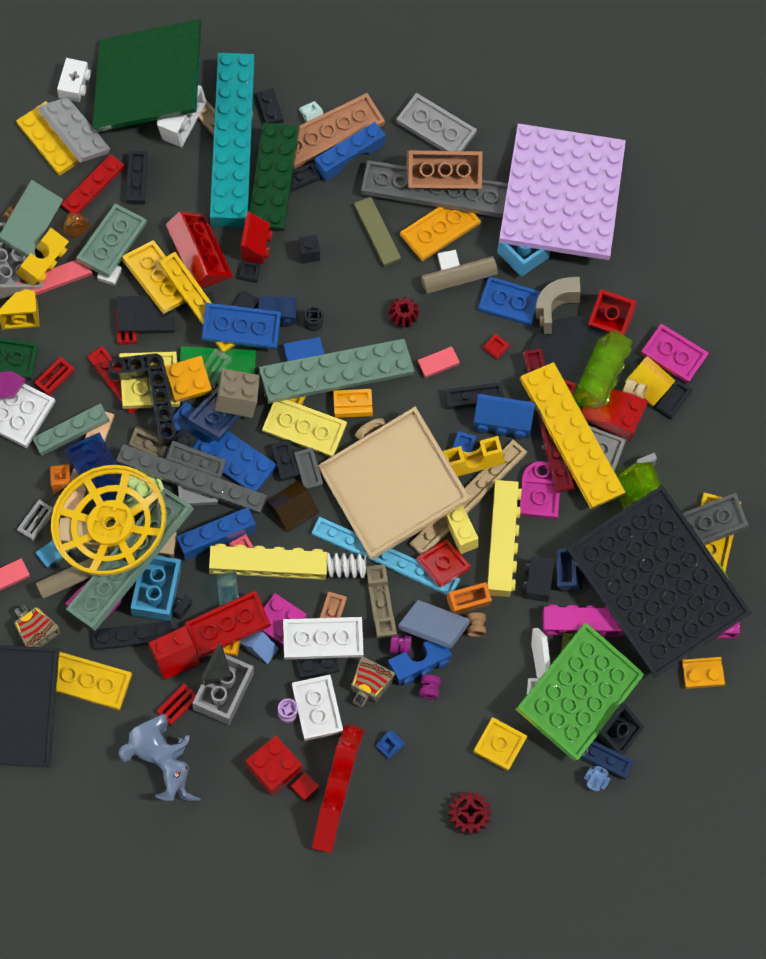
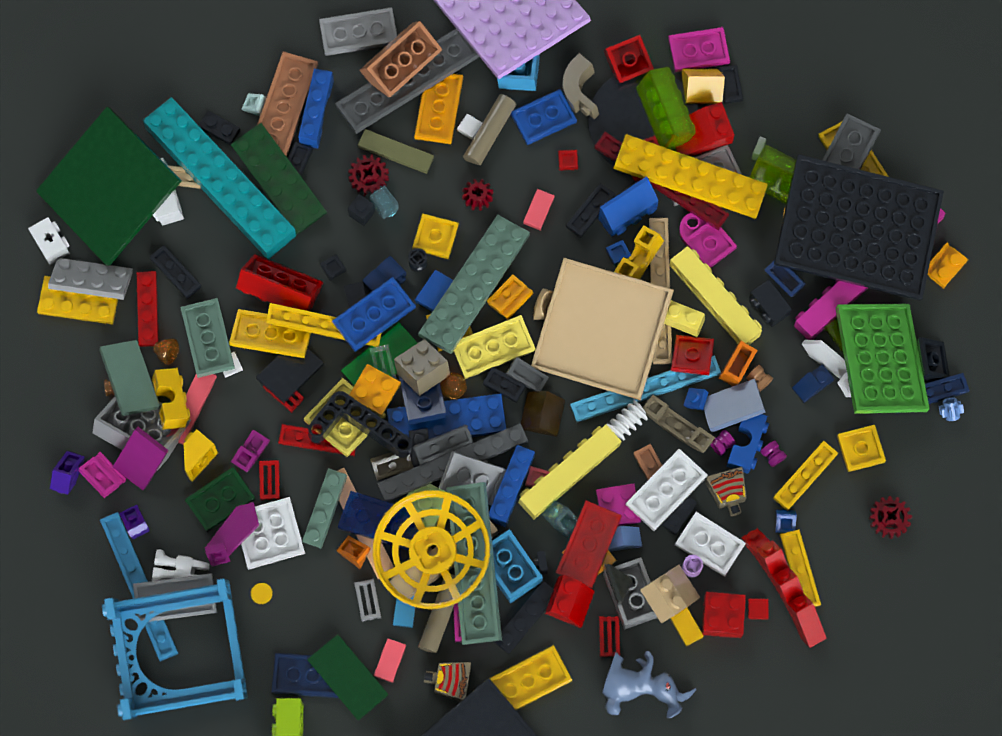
camera: 40 degrees left, 5 degrees up
(62, 345) = (250, 451): none -> magenta slope
(193, 490) = (468, 470): none -> light grey plate
(243, 738) = (686, 627): none -> yellow tile
(249, 429) = (453, 386): none -> clear orange brick
(249, 711) = (670, 593): none -> tan slope
(255, 239) = (315, 239): red slope -> none
(331, 258) = (384, 202): none -> clear light blue brick
(344, 314) = (435, 235): none -> yellow plate
(347, 226) = (365, 167): none -> dark red gear
(365, 787) = (799, 563): none -> yellow tile
(413, 596) = (696, 398): none -> blue plate
(438, 725) = (805, 475): none -> yellow plate
(511, 665) = (813, 383): none -> dark blue slope
(635, 388) = (696, 101): tan wheel -> none

